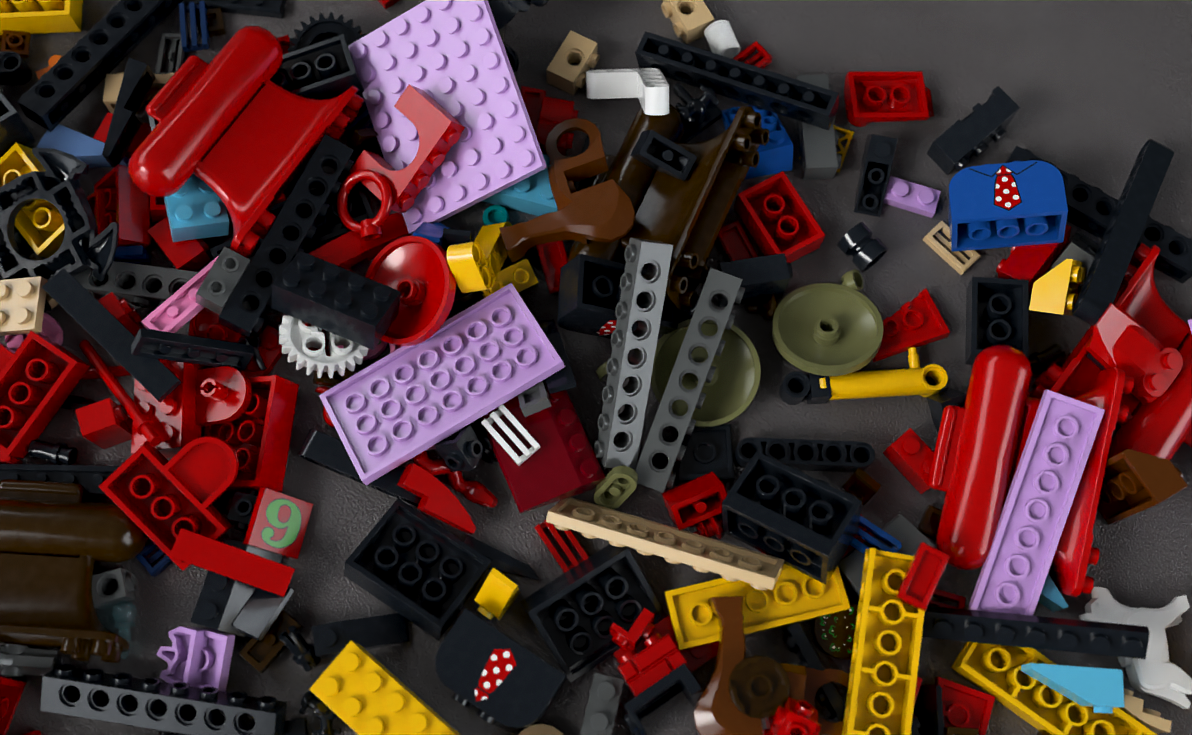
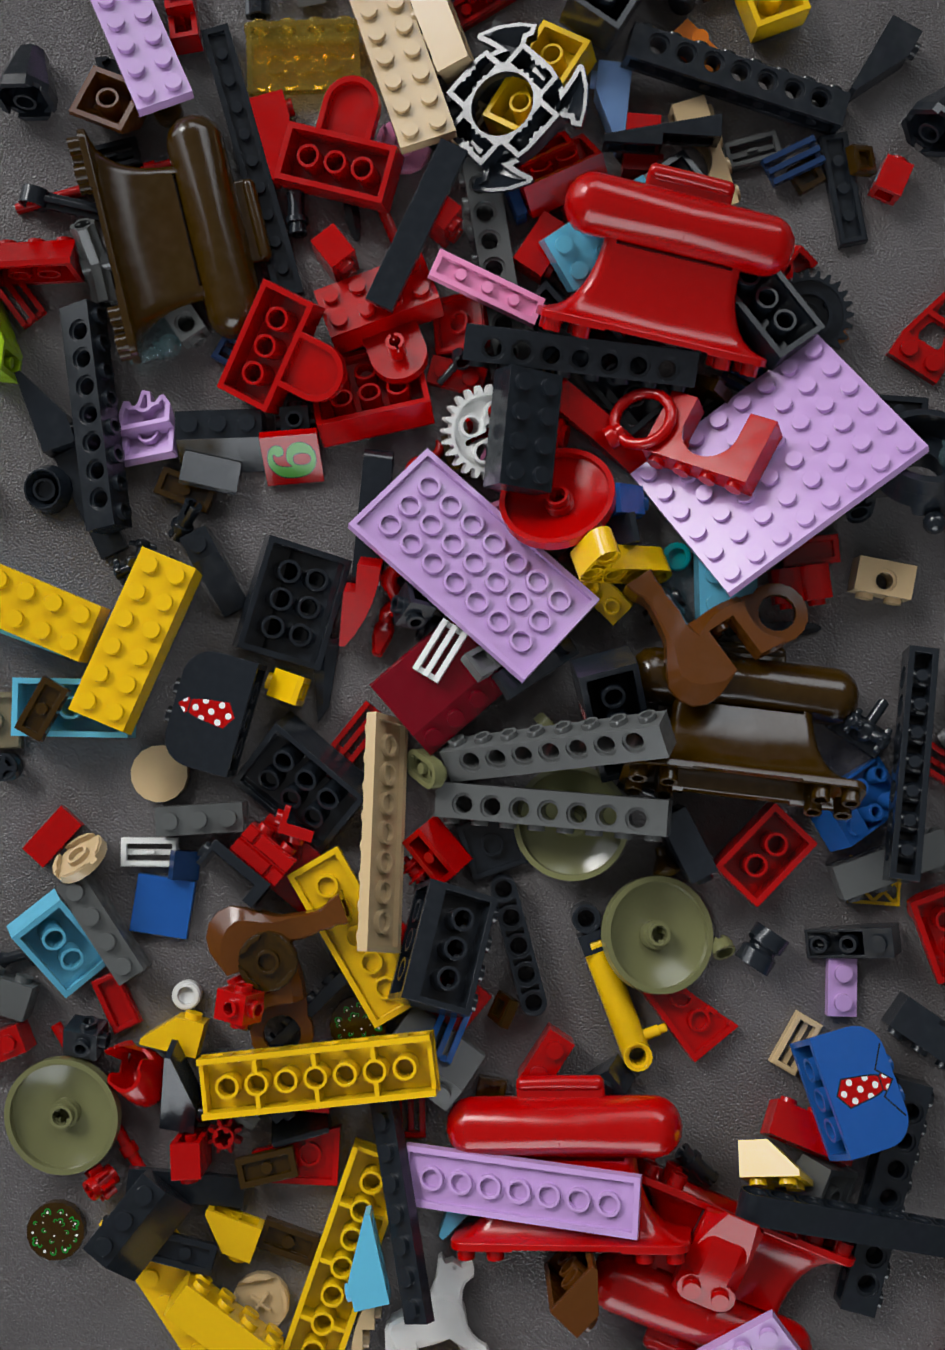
camera: 80 degrees right, 15 degrees up
(141, 421) = (340, 291): red bar -> none
(191, 349) = (424, 302): black plate -> none
(222, 280) = (505, 312): dark grey brick -> none
(232, 562) = (237, 430): red tile -> none
(552, 259) = (638, 635): red tile -> none
(641, 83) = (877, 654): white beam -> none
(663, 155) = (784, 714): black slope -> none
(735, 242) = (722, 819): red tile -> none
(922, 576) = (414, 1092): red tile -> none
(996, 315) = (721, 1108): black slope -> none

